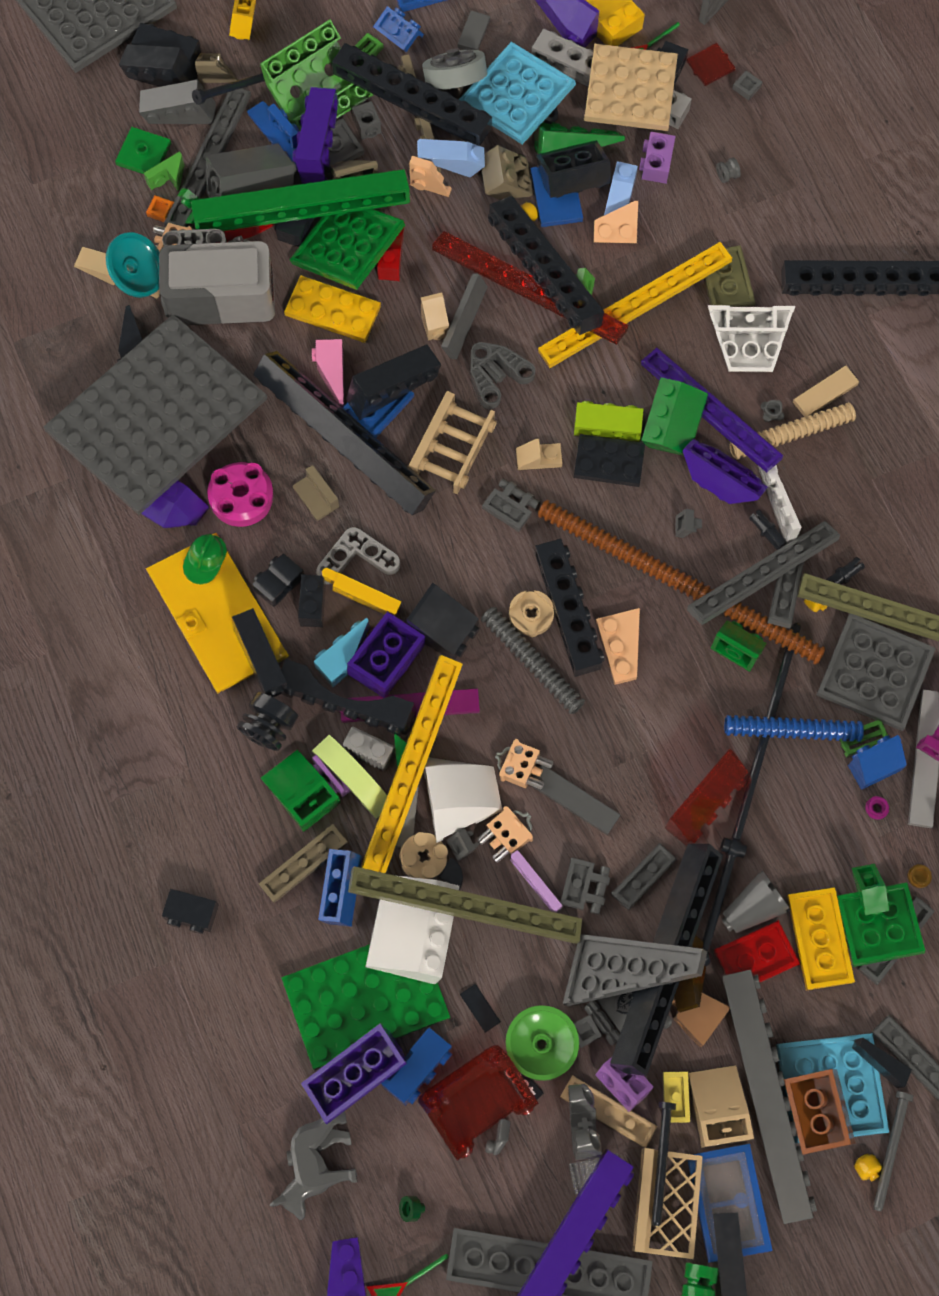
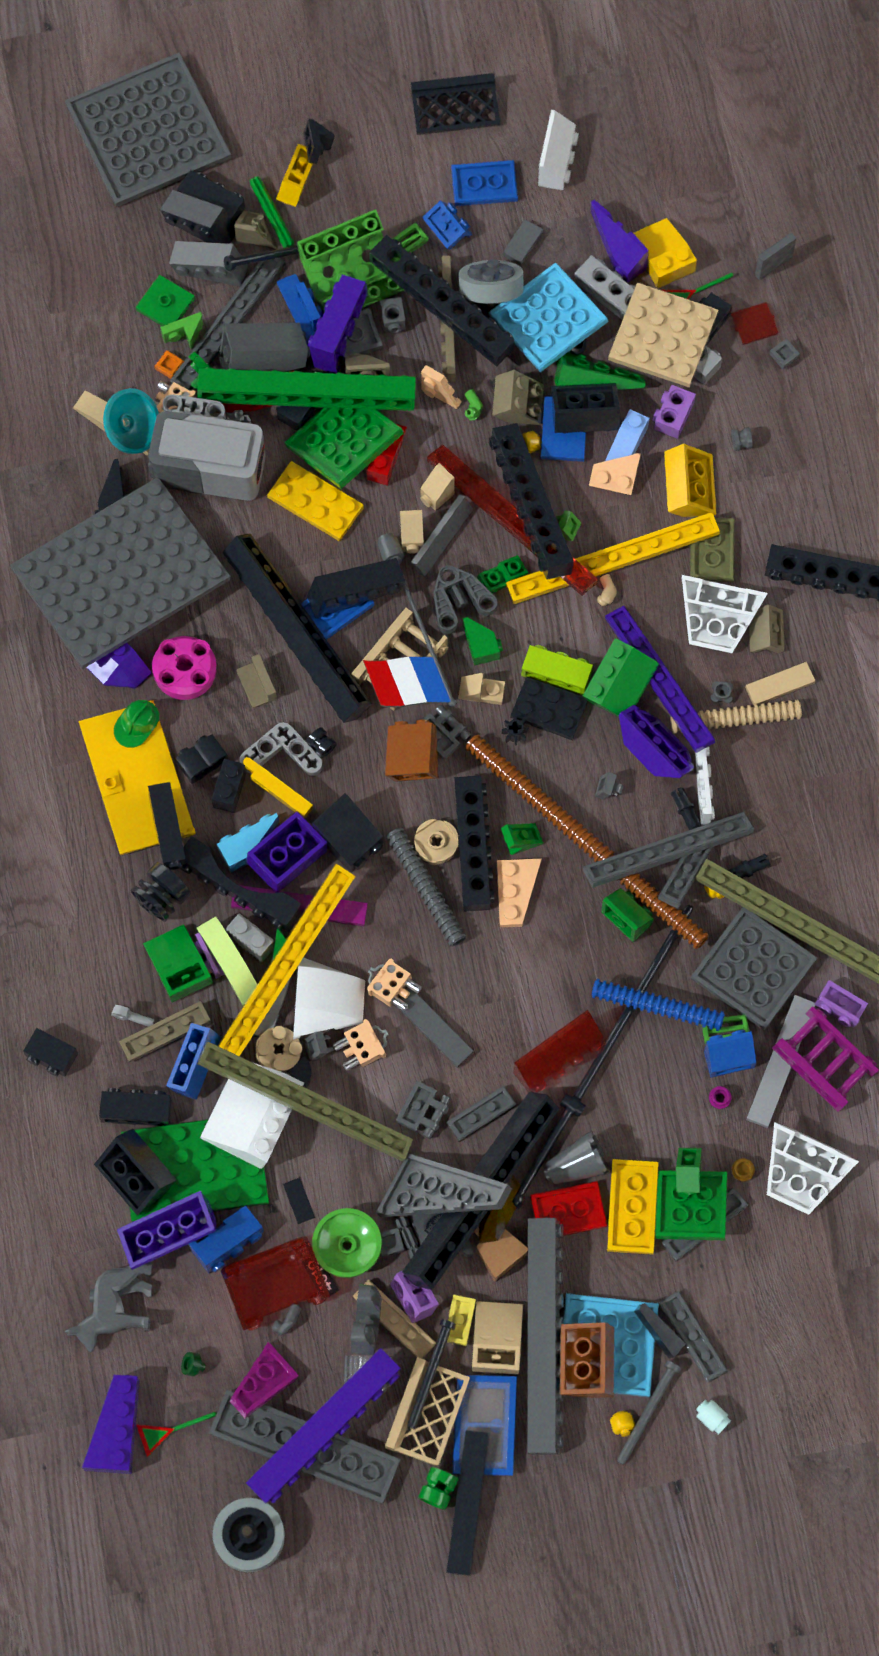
camera: 15 degrees right, 0 degrees up
(226, 48) = (271, 212): none -> green axle
(258, 853) = (125, 1013): none -> light grey bar
(290, 949) = (135, 1107): none -> black brick
(305, 1017) = (134, 1171): none -> black slope
(330, 365) = (300, 555): bright pink slope -> none
(394, 539) = (321, 742): none -> black wheel
(450, 270) = (437, 487): none -> tan slope
(453, 155) = (467, 370): light blue slope -> none
(466, 189) = (475, 405): none -> bright green arm
(469, 457) = (407, 679): none -> flag
(487, 528) = (412, 751): none -> dark orange slope
(490, 1210) = (264, 1381): none -> magenta wing
(528, 410) = (481, 642): none -> green slope
(534, 338) = (507, 570): none -> green slope
(535, 882) = (377, 1096): lavender tile -> none
(586, 484) = (509, 730): none -> black gear
(614, 591) = (521, 837): none -> green slope
(639, 337) = (609, 591): none -> tan arm
(689, 218) = (689, 481): none -> yellow slope
(800, 343) = (767, 630): none -> dark tan panel

